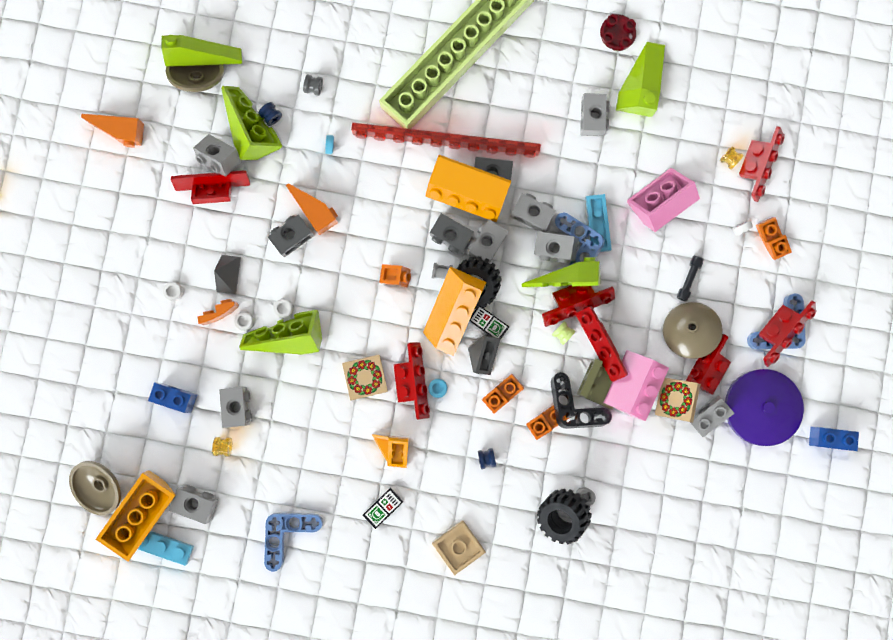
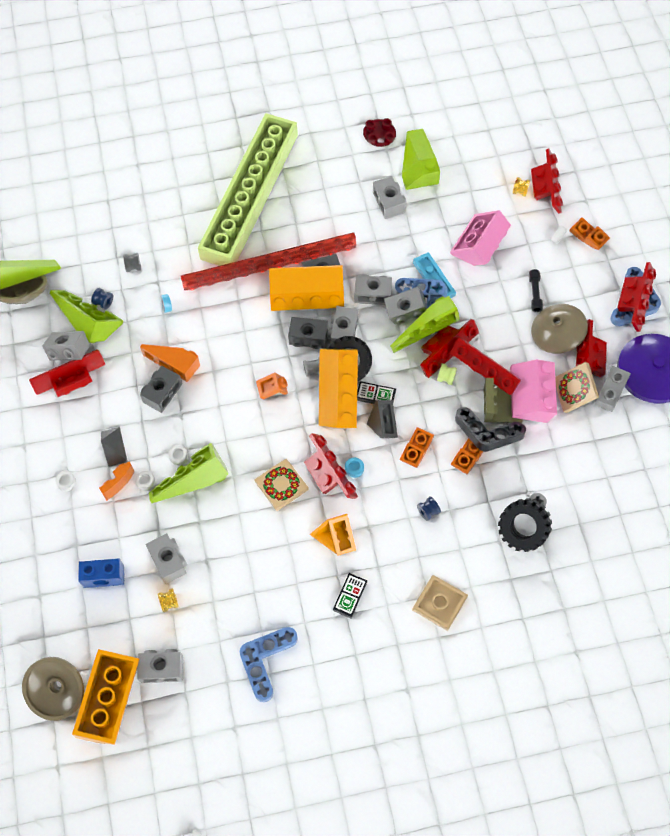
camera: 20 degrees left, 20 degrees down
(167, 548) = (147, 724): medium azure plate -> none

